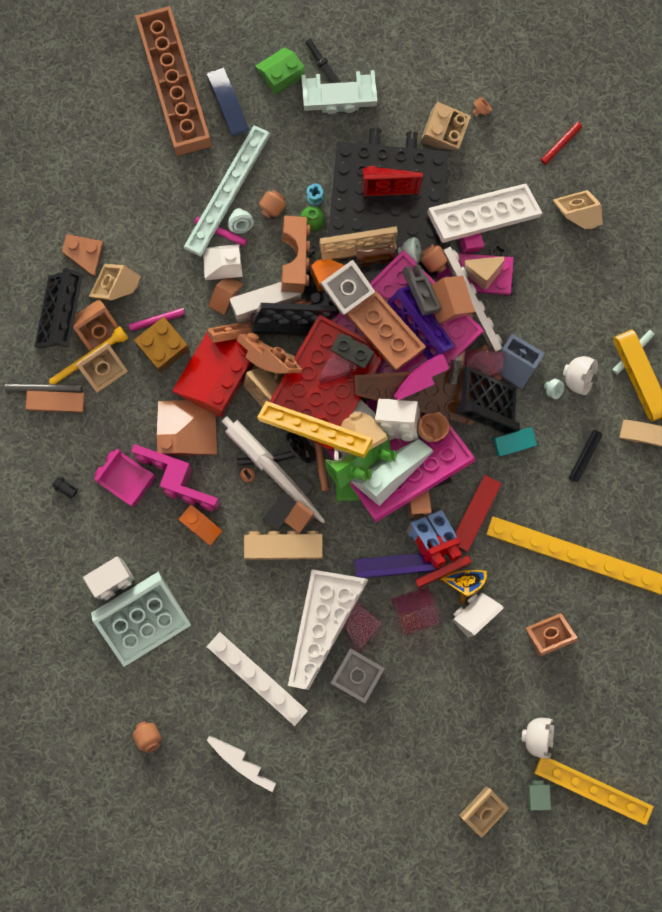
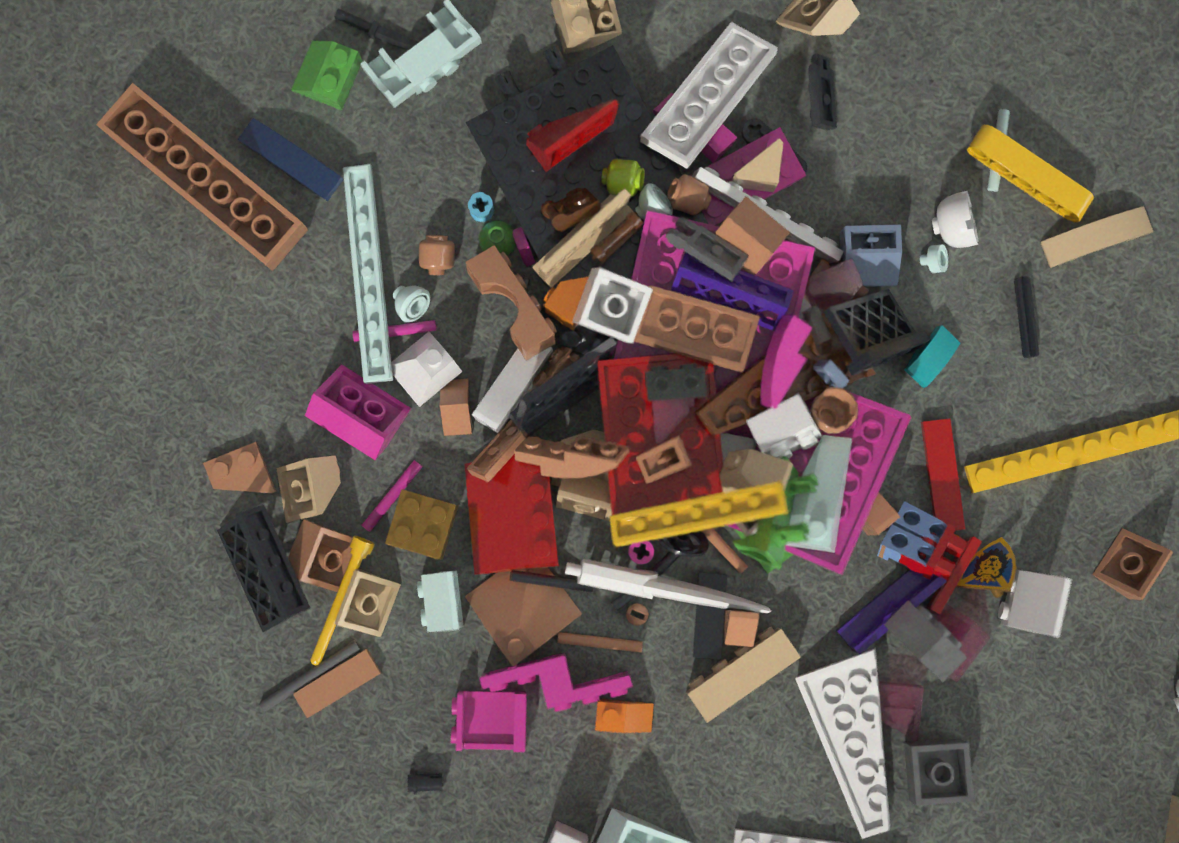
camera: 35 degrees left, 5 degrees up
(144, 393) = (440, 601): none -> light aqua slope
(169, 260) = (357, 412): none -> dark pink slope
(212, 423) = (548, 580): none -> black bar
(215, 476) = (600, 642): none -> nougat bar
(274, 434) = (645, 559): none -> dark pink bush
(317, 390) = (663, 460): none -> nougat slope
(323, 231) = (523, 247): none -> dark pink tile
(366, 223) = (579, 204): none -> reddish brown plate
(399, 593) = (927, 639): none -> flat silver brick
(405, 225) = (623, 175): none -> lime head
(444, 404) = (830, 373): none -> sand blue tile
(551, 255) = (822, 93): none -> black hinge

